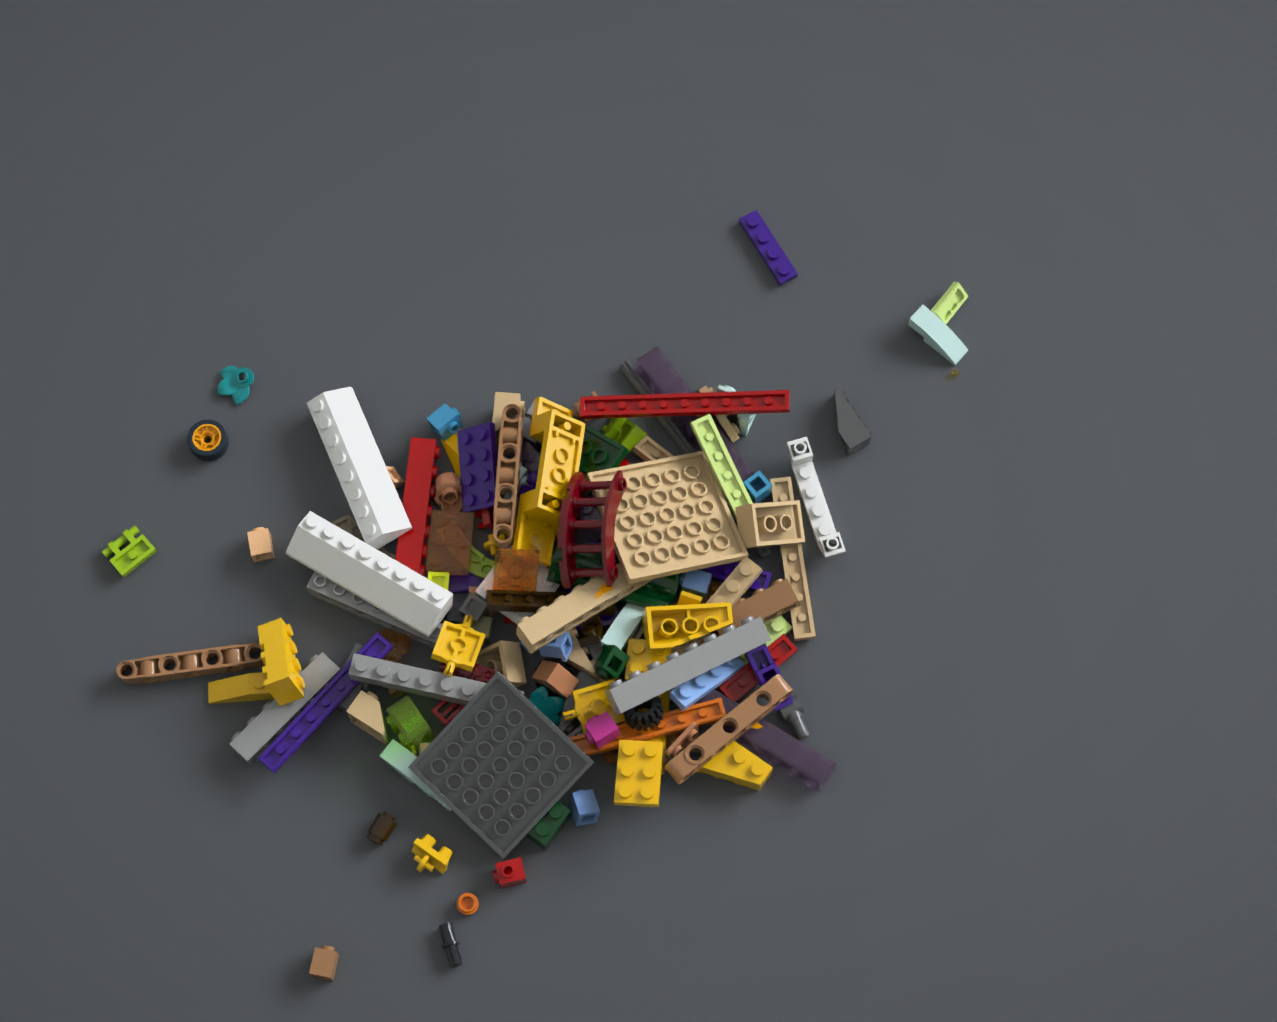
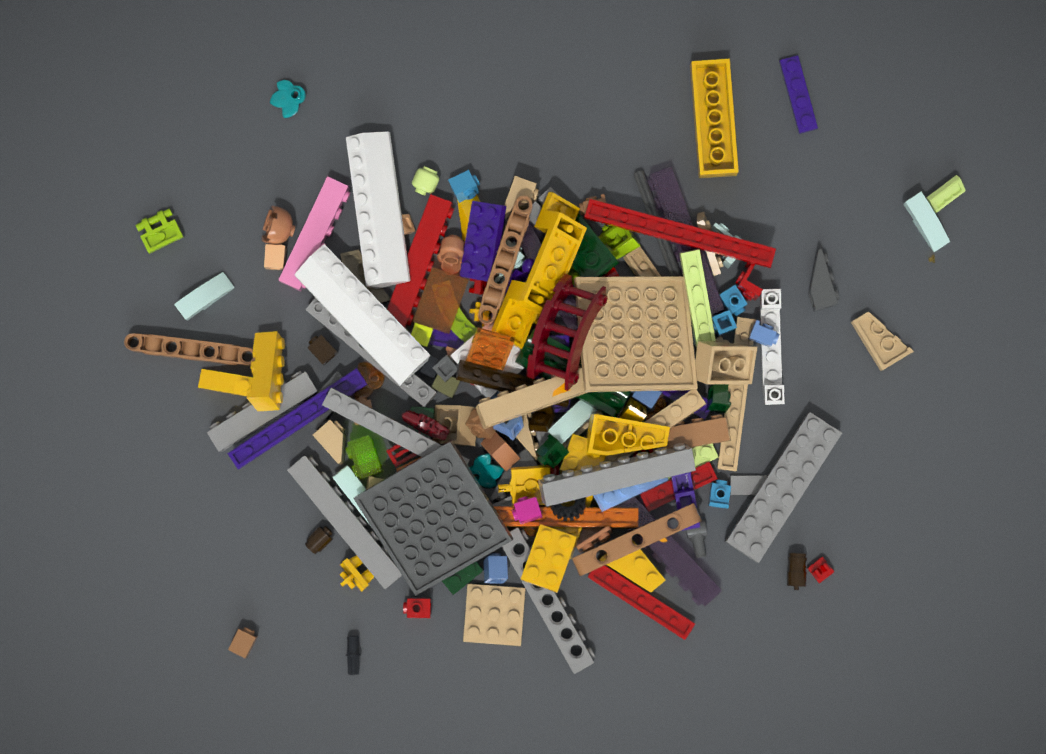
camera: 15 degrees right, 15 degrees up
(192, 605) = (204, 296): none -> light aqua slope
(198, 436) = (244, 139): wheel -> none
(256, 511) = (278, 226): none -> nougat cylinder
(298, 502) = (316, 229): none -> bright pink brick
(335, 627) = (322, 349): none -> dark brown brick
(402, 426) = (425, 180): none -> yellowish green head
(405, 801) = (343, 519): none -> light grey brick
(458, 646) = (423, 403): yellow plate -> none
(467, 904) = (375, 623): orange plate -> none
(524, 659) = (476, 428): none -> medium nougat brick
(596, 859) = (494, 614): none -> tan plate
(688, 289) = (714, 118): none -> yellow brick
(698, 885) = (577, 662): none -> light grey brick
(753, 800) = (642, 601): none -> red plate
(762, 461) = (733, 300): none -> dark azure brick
(771, 445) = (748, 289): none -> red bracket
(774, 563) = (718, 398): none -> dark green brick
(802, 487) = (763, 334): none -> medium blue brick
(805, 673) = (714, 500): none -> dark azure brick
(834, 649) = (745, 484): none -> light grey tile
(870, 640) = (783, 487): none -> light grey brick
(911, 723) = (796, 570): none -> dark brown piece
(927, 467) = (880, 343): none -> tan wing
(936, 717) = (820, 569): none -> red tile

